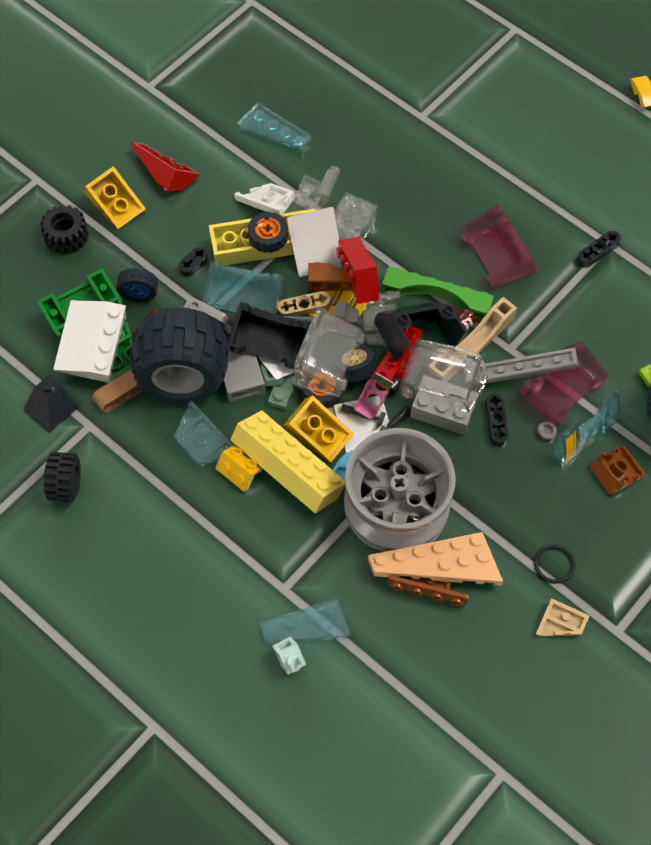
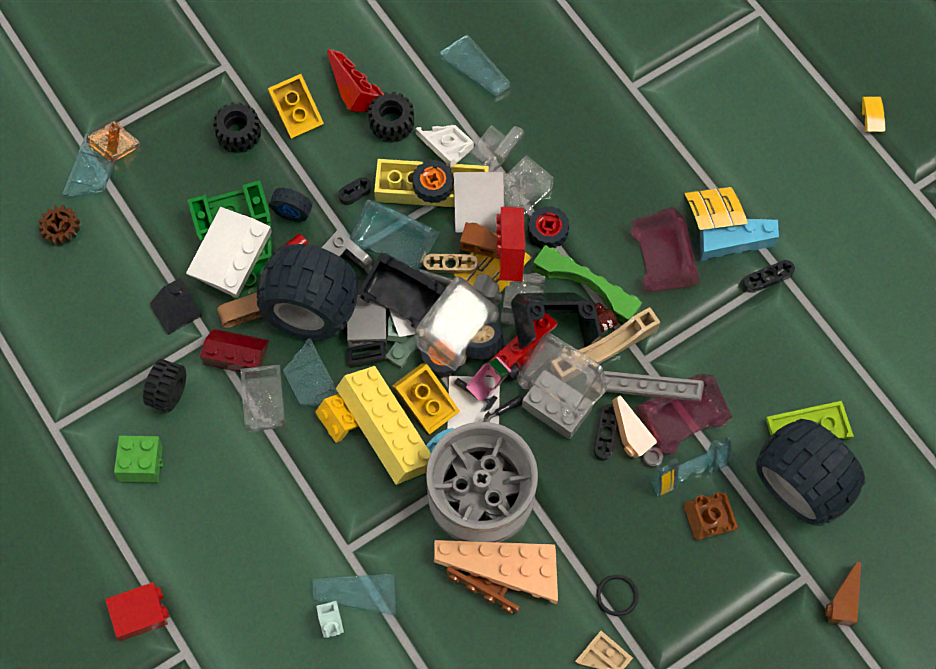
camera: 15 degrees right, 5 degrees up
(54, 553) = (138, 459): none -> bright green brick
(95, 698) = (137, 611): none -> red brick
(120, 433) = (233, 351): none -> dark red slope
(162, 466) = (263, 398): none -> clear brick
(205, 177) = (391, 104): none -> black tyre
(251, 406) = (367, 361): none -> black tile
(386, 250) = (548, 227): none -> black wheel
(522, 411) = (632, 431): none -> light nougat slope
(534, 199) = (716, 208): none -> yellow sticker
(557, 220) = (738, 238): none -> medium azure wedge

